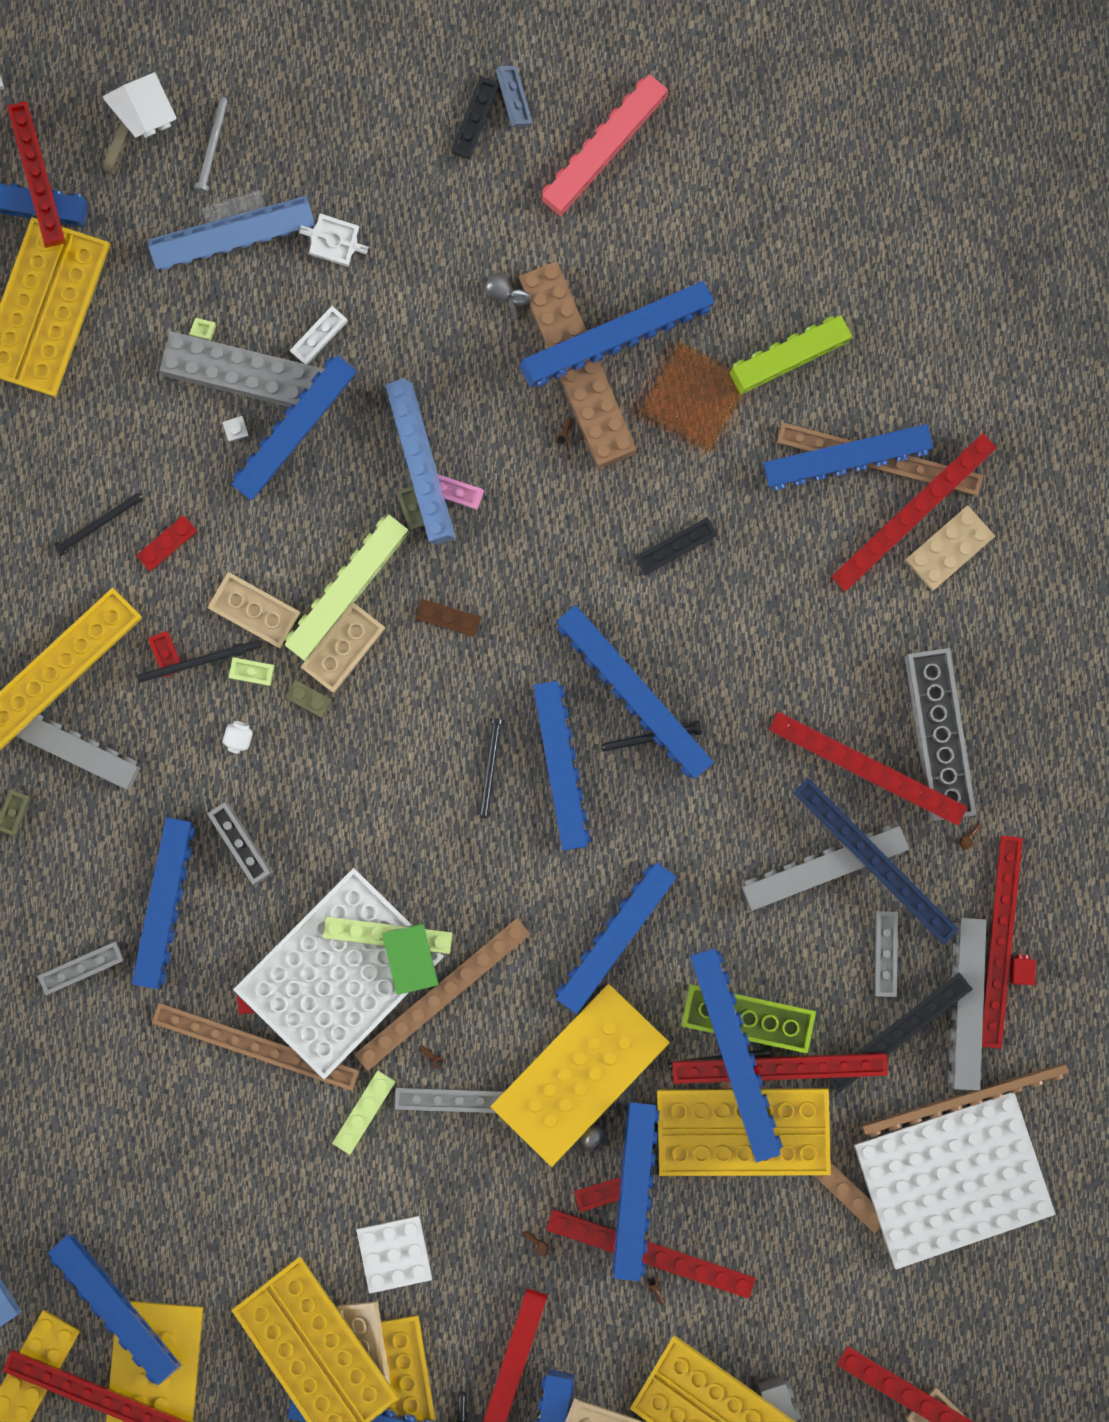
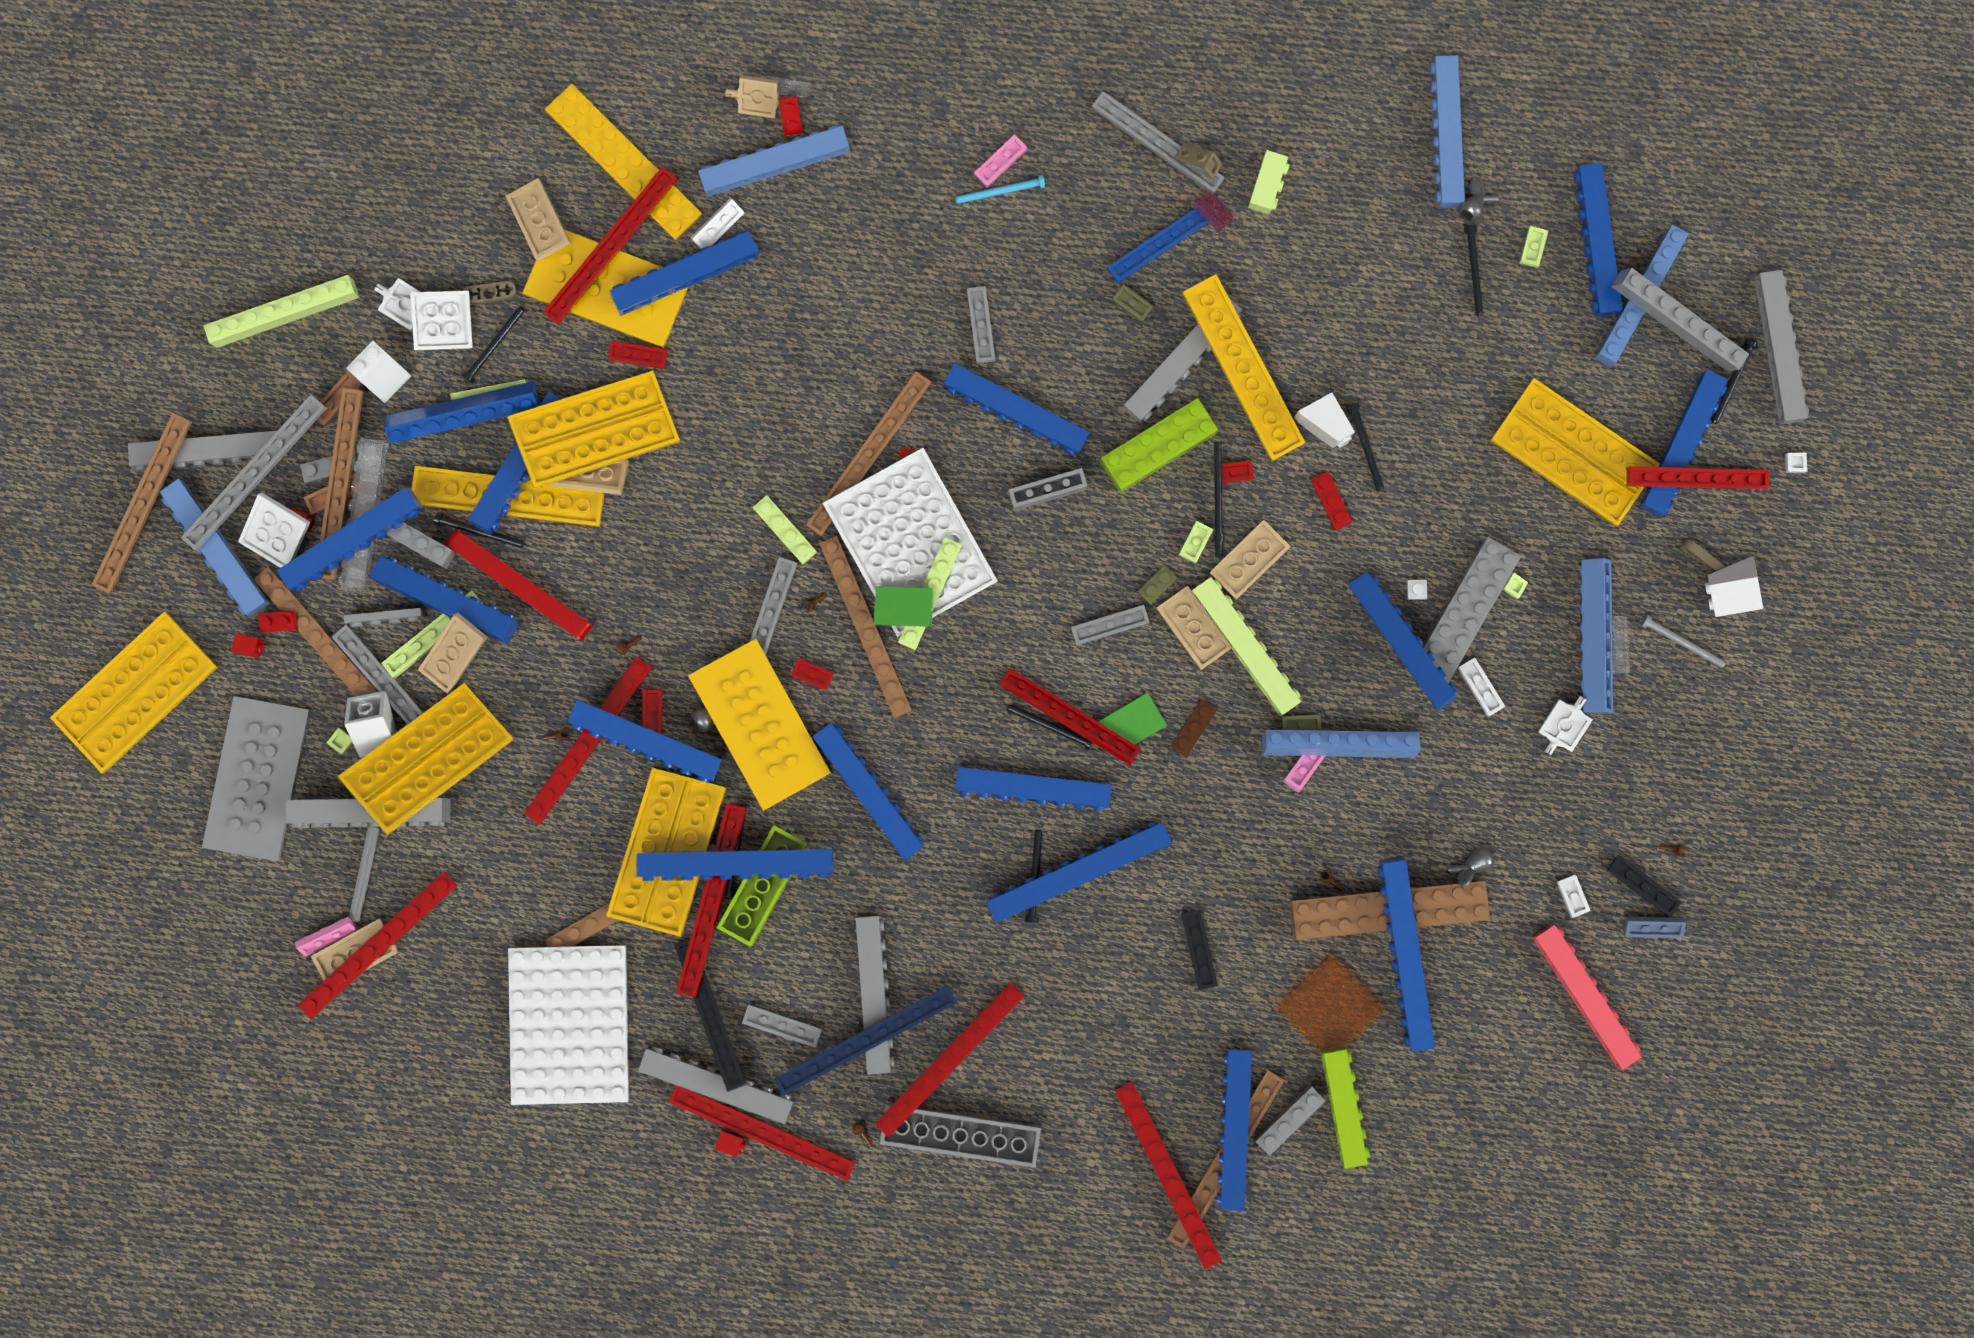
camera: 105 degrees right, 0 degrees up
(50, 1289) = (718, 224): none -> white plate
(84, 570) = (1326, 421): none -> white slope
(159, 740) = (1159, 445): none -> lime brick
(219, 1332) = (637, 355): none -> red plate
(237, 736) = (1142, 513): white head -> none
(365, 736) = (1110, 625): none -> light grey plate
(394, 1254) = (656, 521): white plate -> none
(428, 95) = (1677, 850): none -> reddish brown hand
(462, 682) = (1136, 720): none -> bright green tile
(474, 749) = (1070, 716): none -> red plate
(506, 185) = (1573, 896): none -> white plate
(510, 1035) = (812, 674): none -> red plate
(820, 406) = (1289, 1120): none -> light grey brick
(950, 548) = (1126, 1198): tan plate -> none
(973, 1097) = (633, 1063): medium nougat plate -> none

